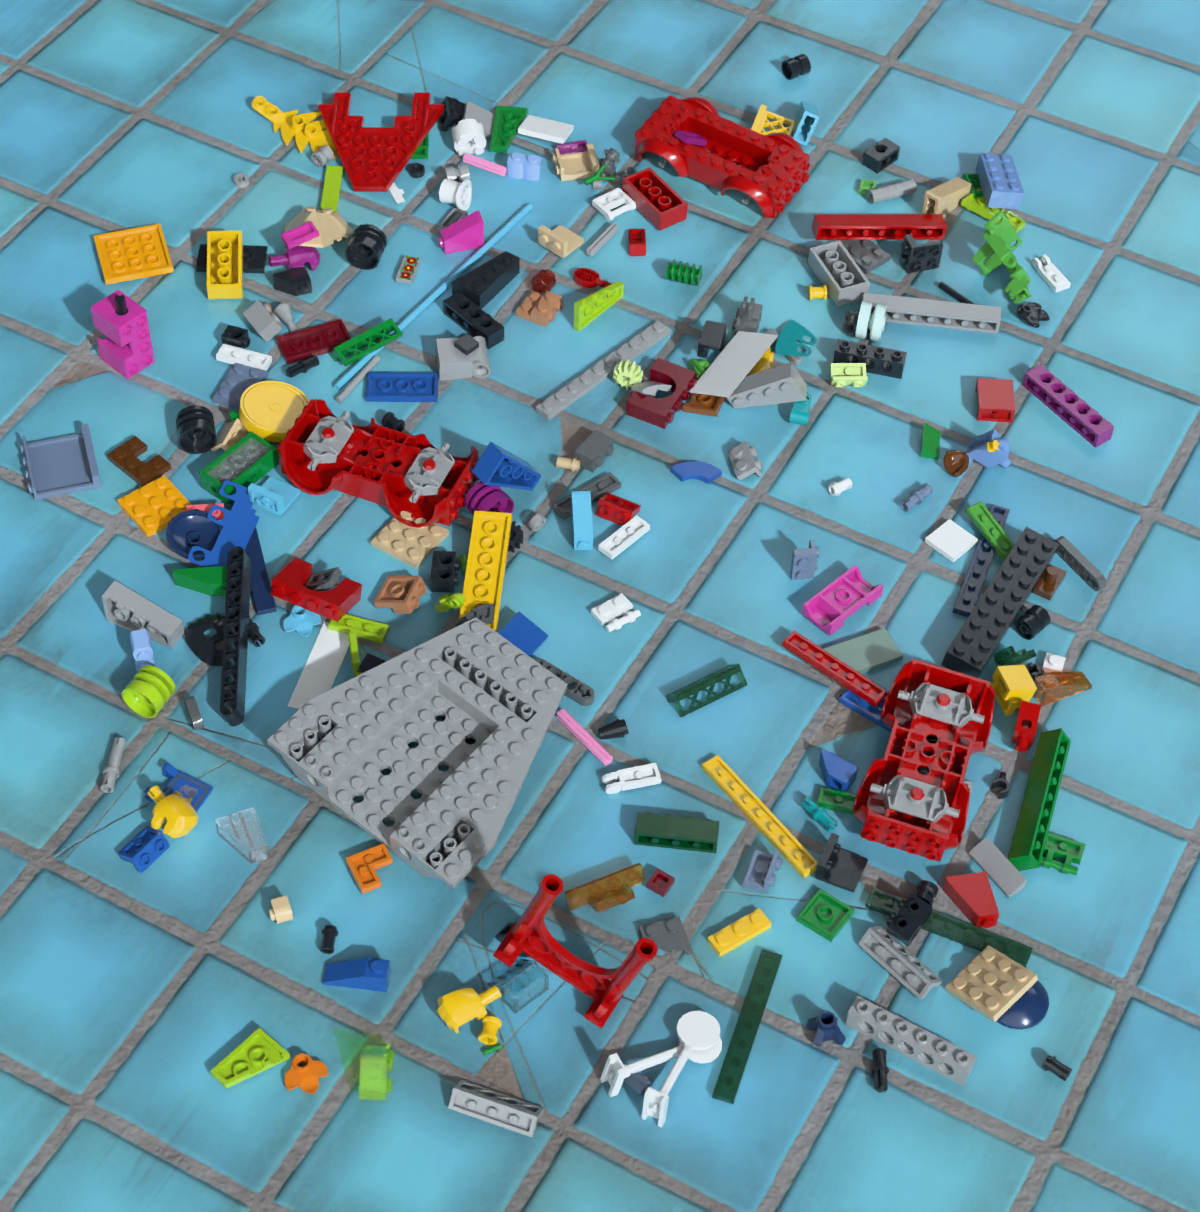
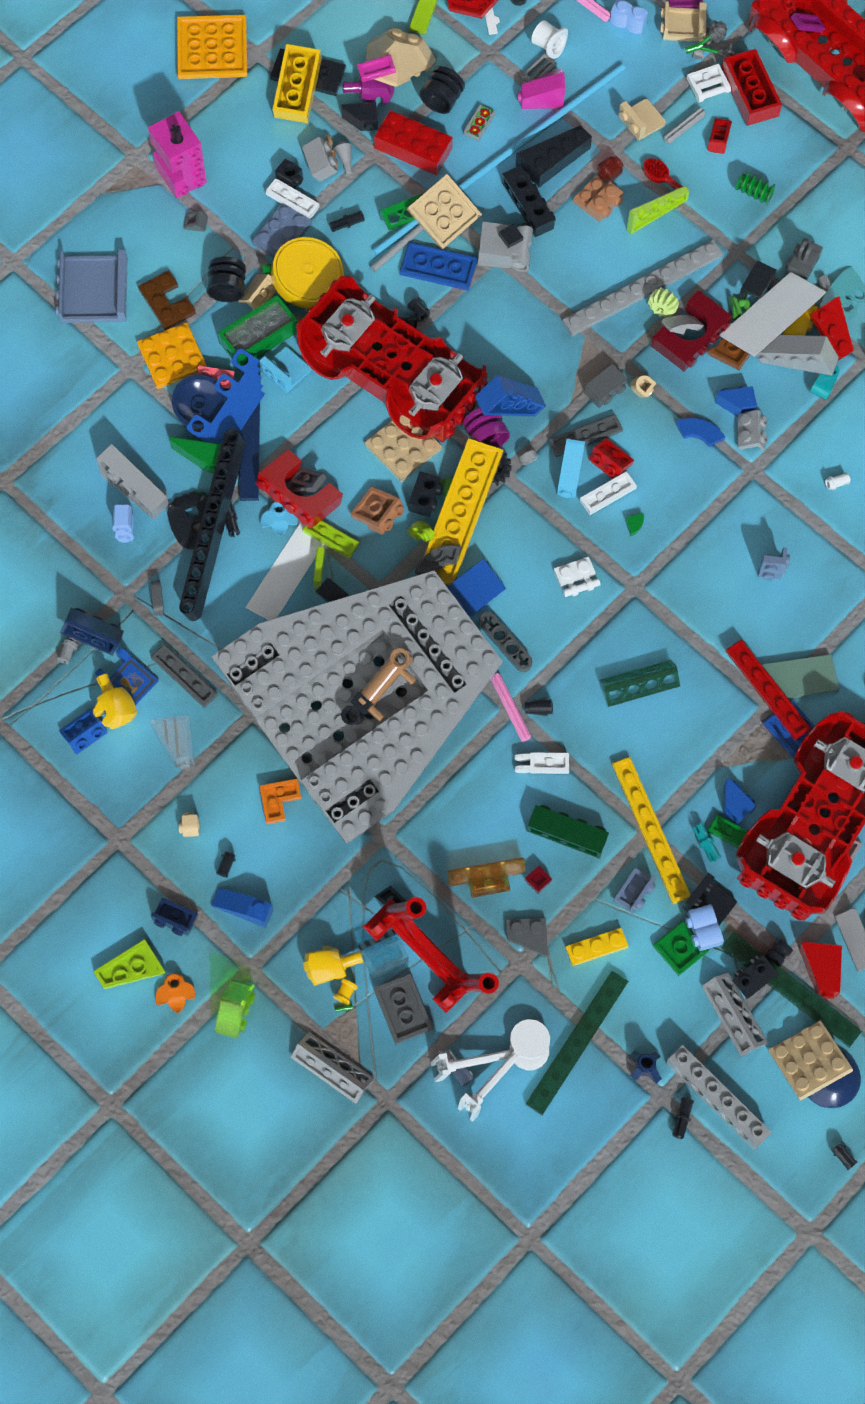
camera: 15 degrees right, 20 degrees up
(132, 753) = (92, 631): none -> dark blue slope
(148, 691) = (120, 568): lime wheel -> none
(152, 393) = (196, 221): none -> dark grey slope
(239, 778) = (184, 676): none -> dark grey tile
(286, 1000) = (174, 917): none -> dark blue bracket
(312, 341) = (365, 191): dark red tile -> none
(349, 293) = (413, 142): none -> red brick
(396, 339) = (444, 211): none -> tan plate
(437, 748) = (365, 700): none -> medium nougat piece
(457, 174) = (557, 14): light grey wheel -> none
(555, 1033) = (403, 1009): none -> dark grey plate
(567, 463) = (580, 396): tan pin -> none
(629, 443) = (642, 386): none -> tan plate
(657, 558) = (634, 523): none -> green tile
(722, 439) = (737, 400): none -> blue slope
(788, 353) = (832, 323): none -> red wing
(840, 600) = (798, 614): dark pink piece -> none
(844, 886) = (704, 927): none -> light blue brick

